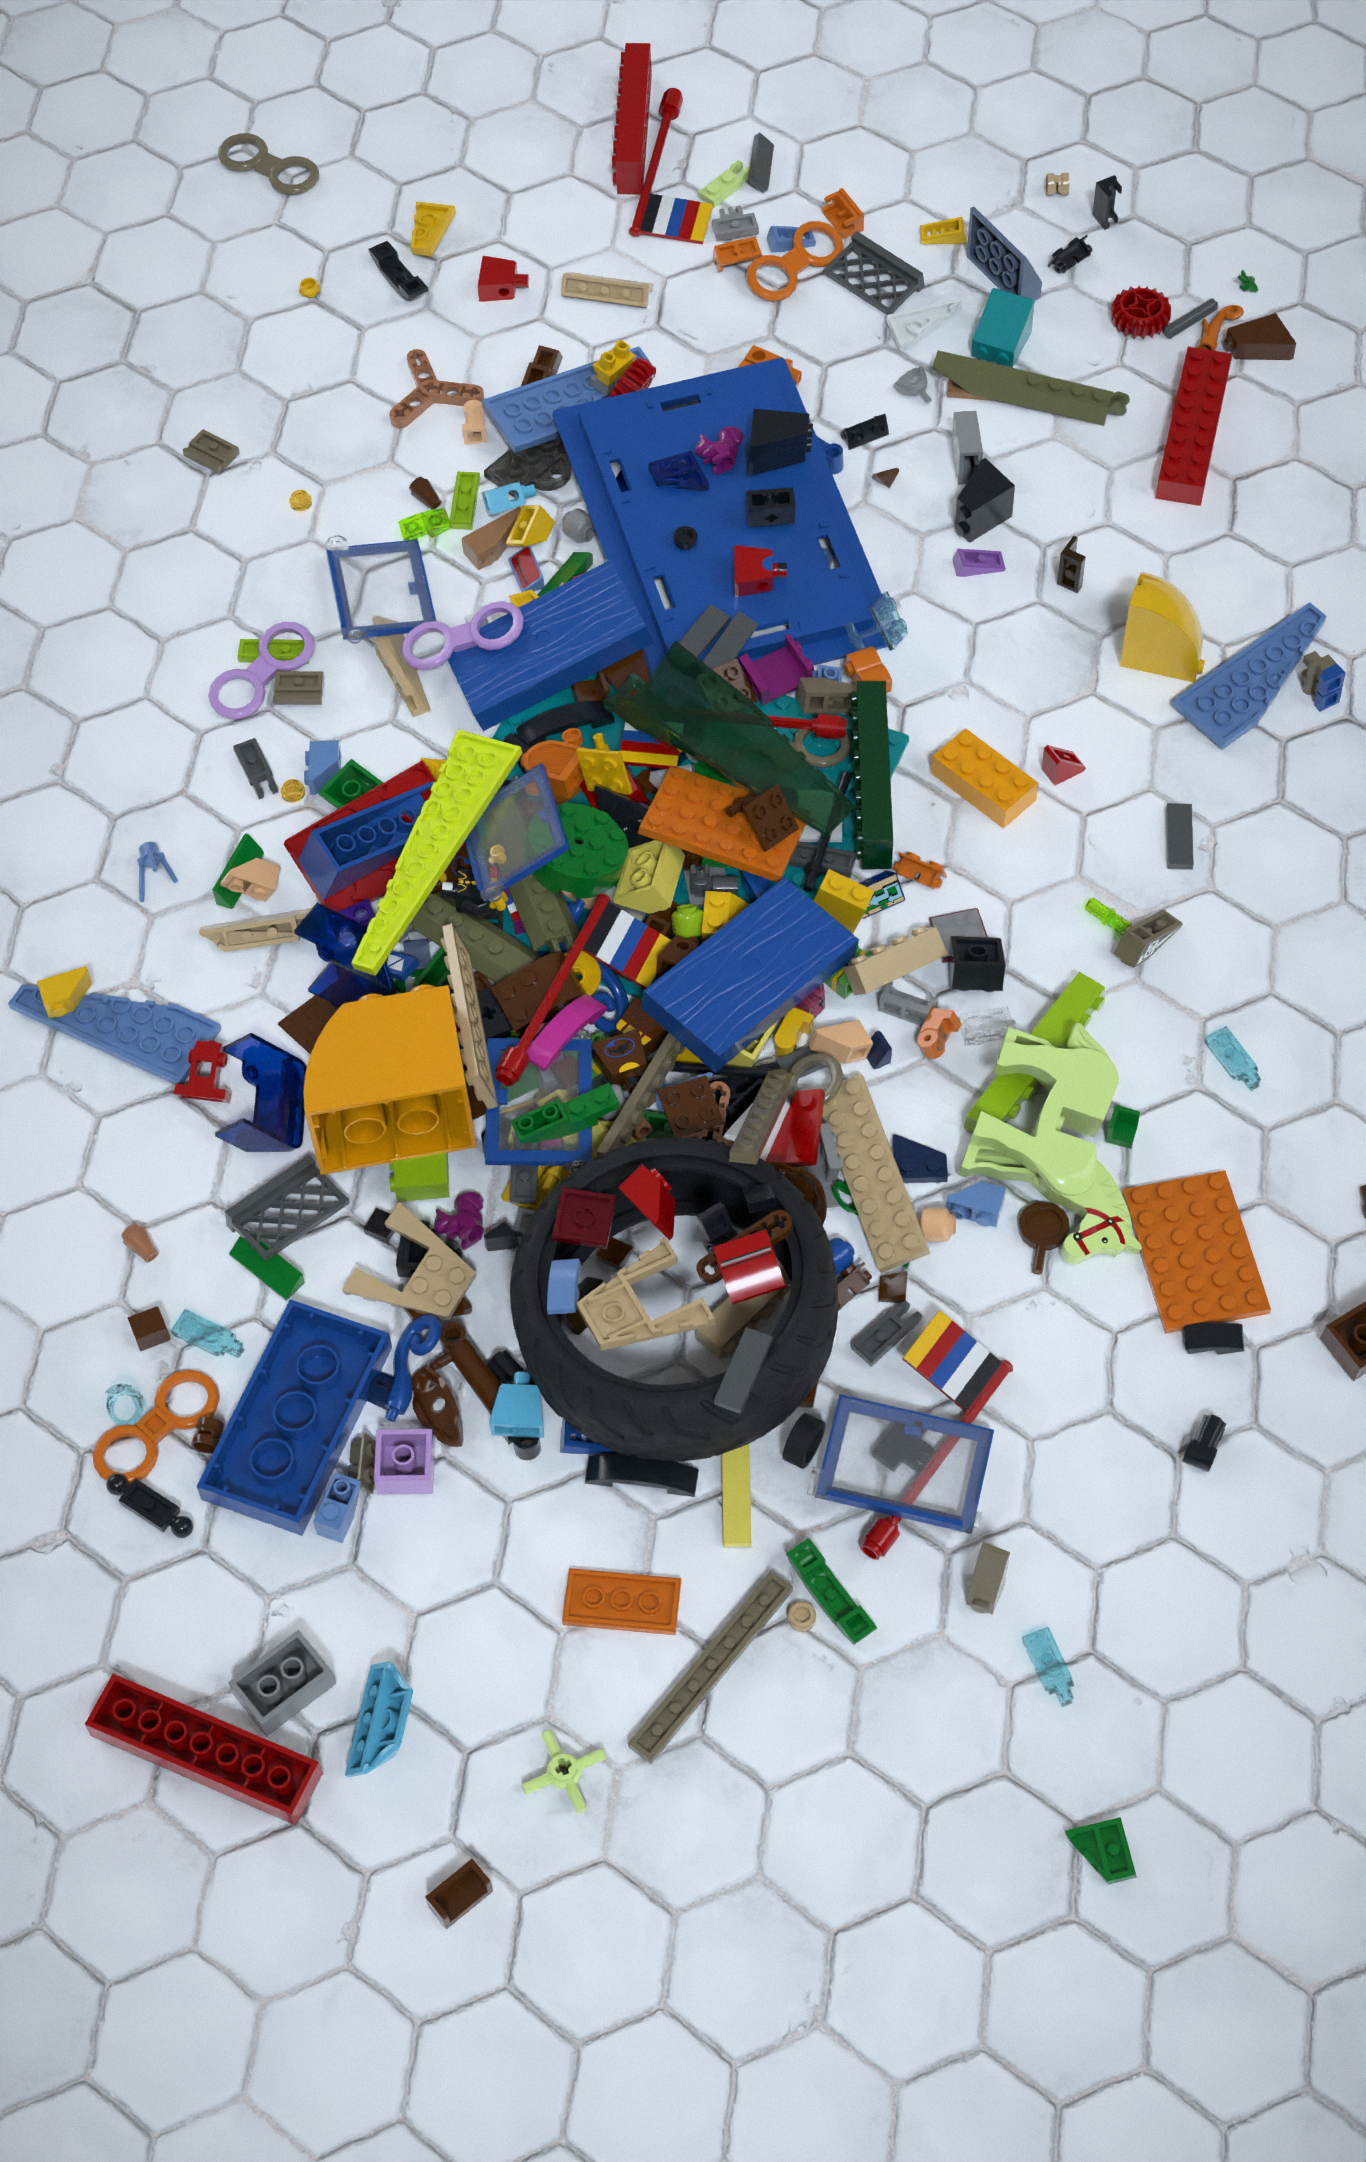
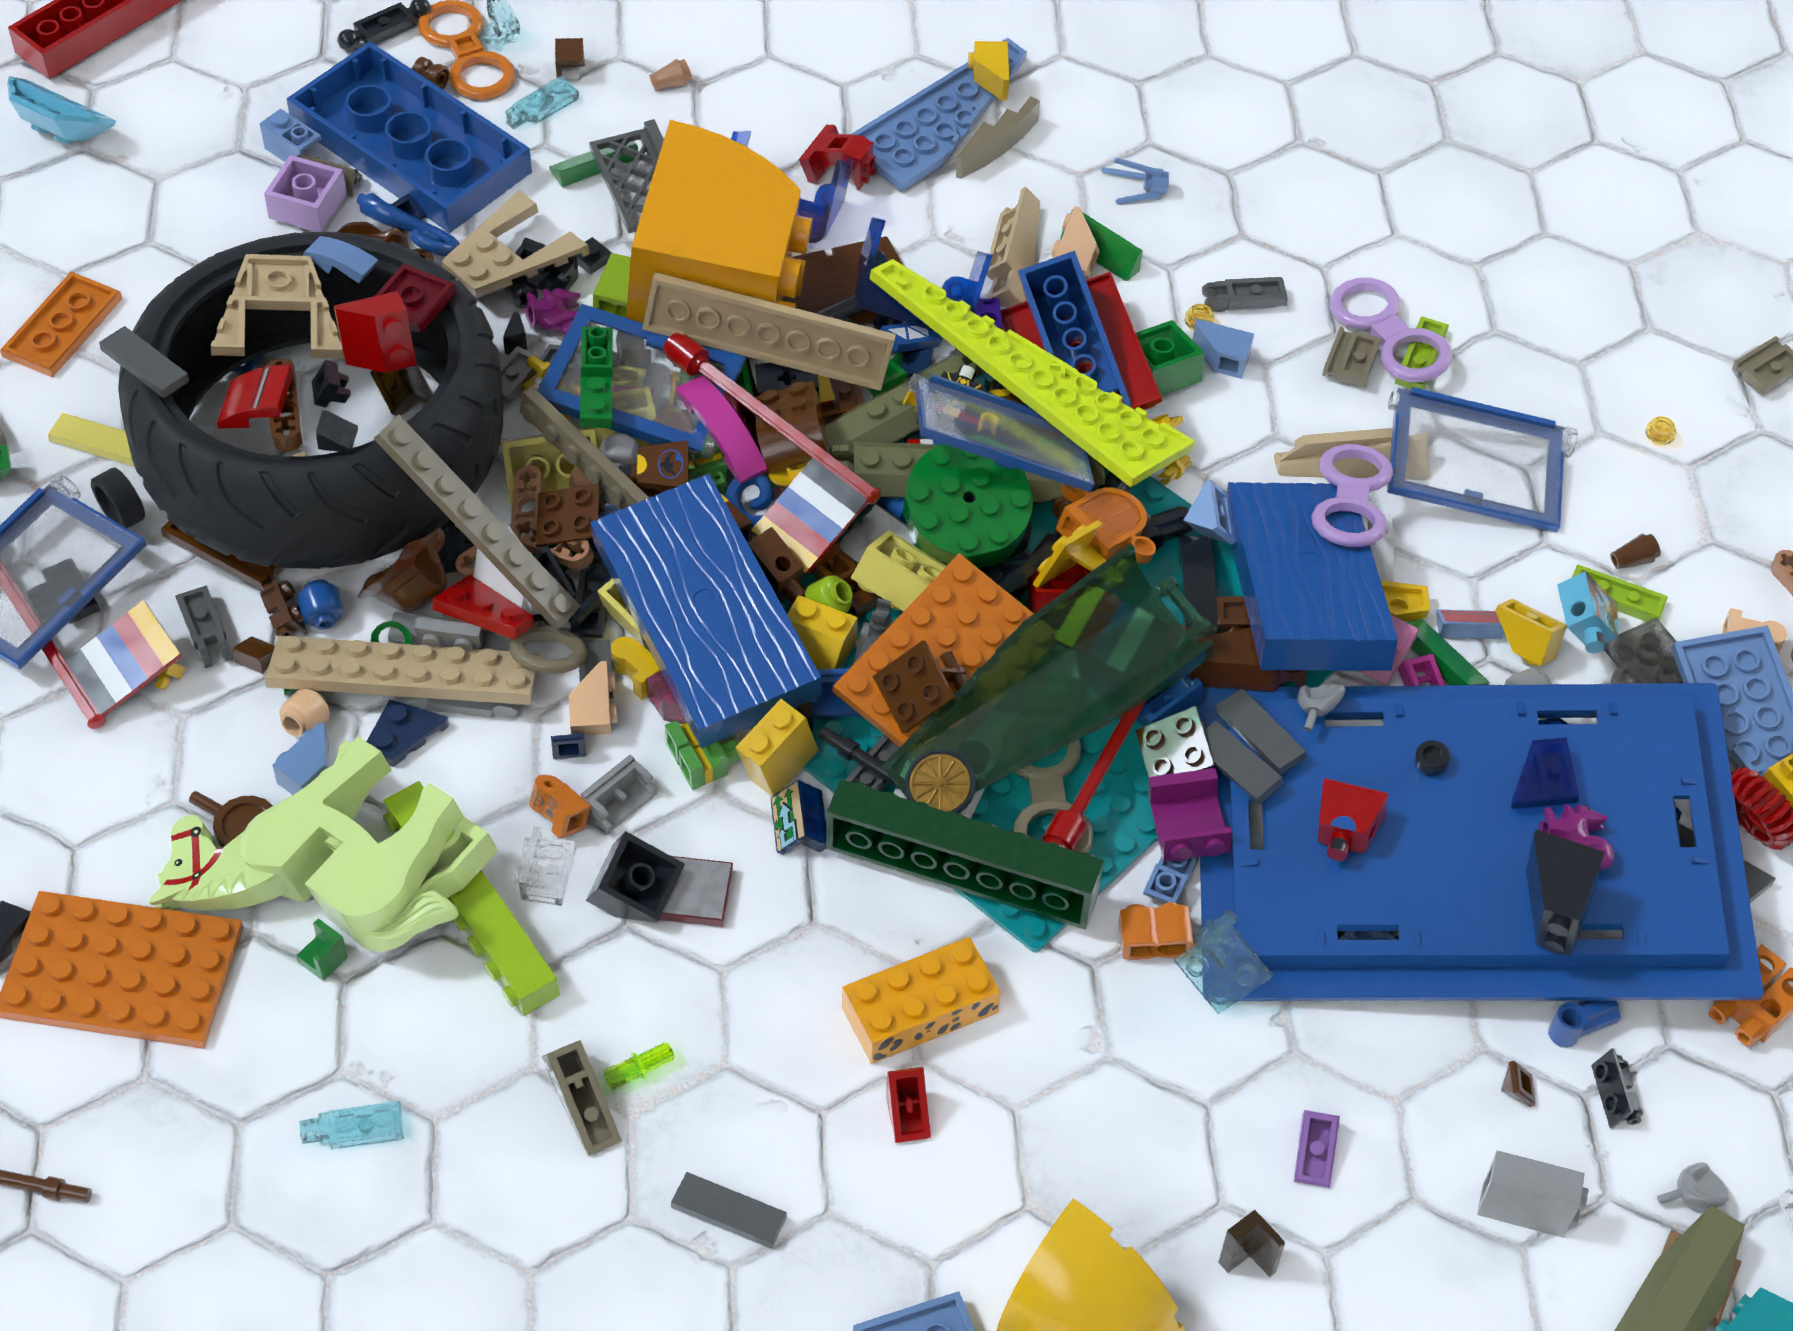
camera: 105 degrees right, 5 degrees down
(144, 978) = (994, 141): none -> dark tan slope
(282, 1683) = (143, 61): light grey brick -> none
(427, 522) = (1579, 536): clear neon green slope -> none
(488, 542) = (1526, 582): medium nougat slope -> none
(512, 716) = (1212, 514): none -> light blue slope
(663, 606) = (1319, 701): none -> light grey piece
(770, 507) = (1446, 857): black brick -> none
(824, 695) = (1129, 858): dark tan slope -> none
(830, 795) = (941, 780): none -> pearl gold wheel
(895, 960) = (672, 786): tan brick -> none
(912, 865) = (816, 879): orange hinge -> none
(984, 502) = (1416, 1173): black slope -> none

